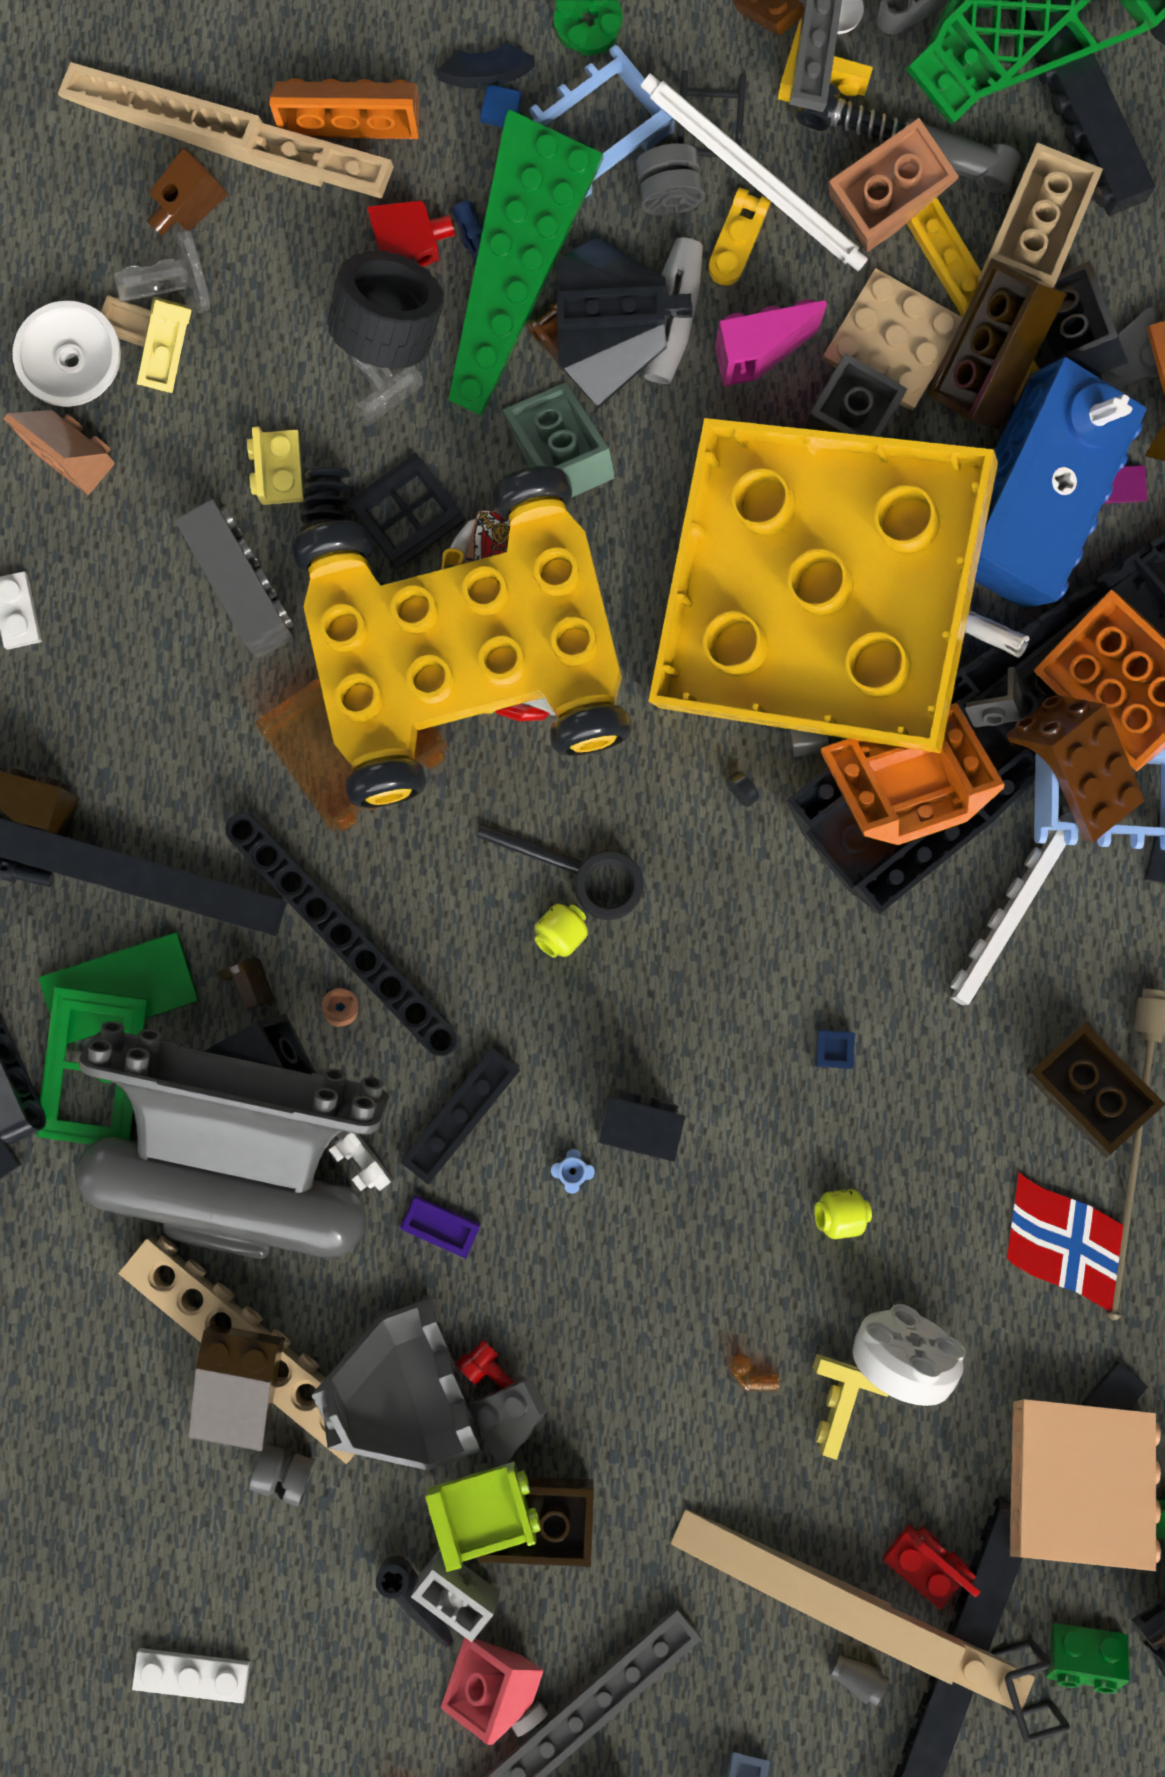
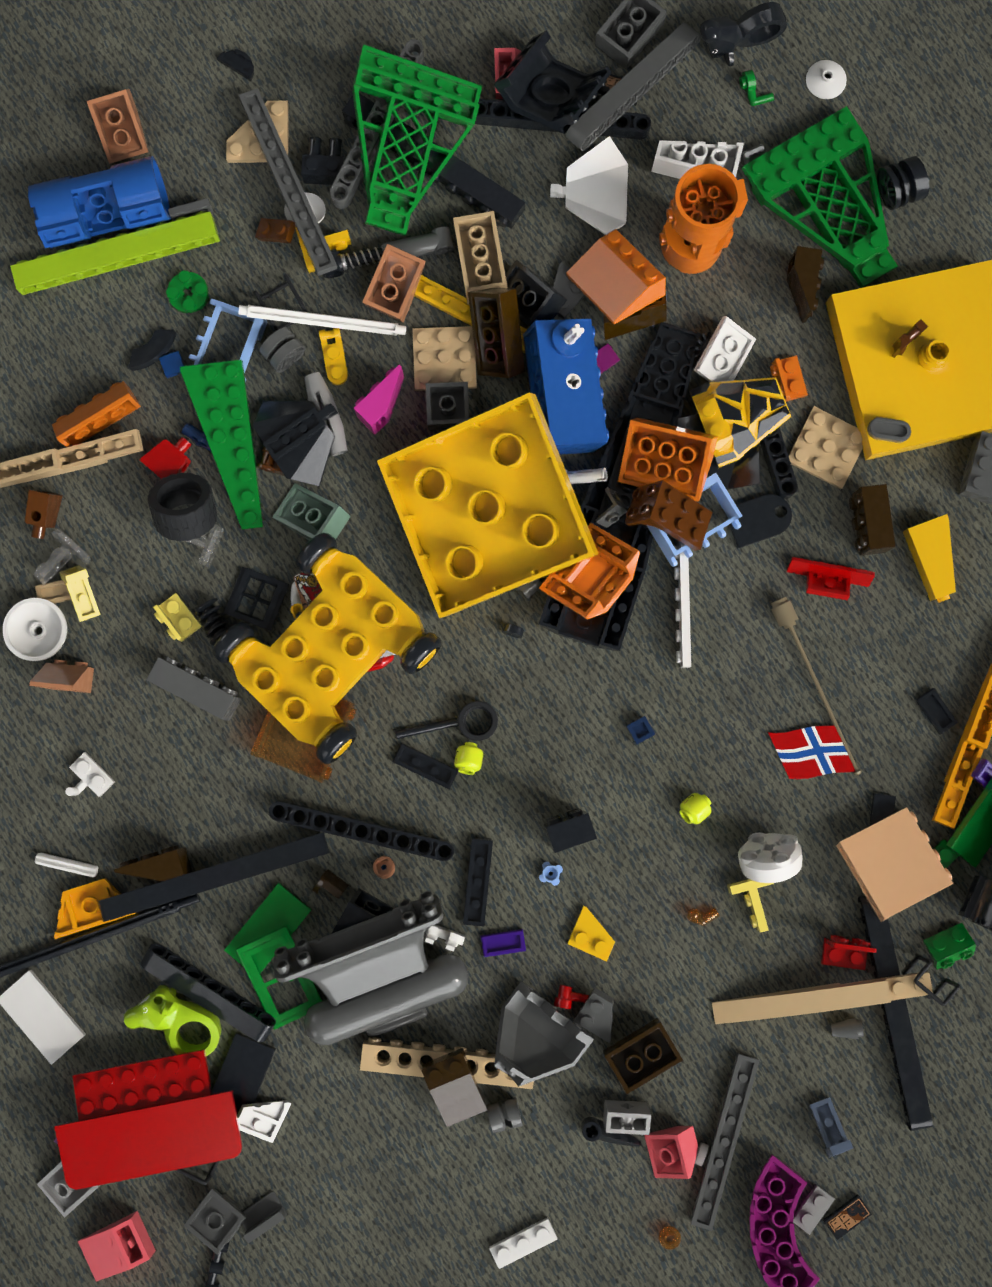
camera: 30 degrees left, 0 degrees up
(482, 1514) = (614, 1069): lime panel -> none
(492, 901) = (425, 766): none -> black tile
(572, 1299) = (591, 936): none -> yellow wing
(1095, 1090) = (778, 669): dark brown brick -> none

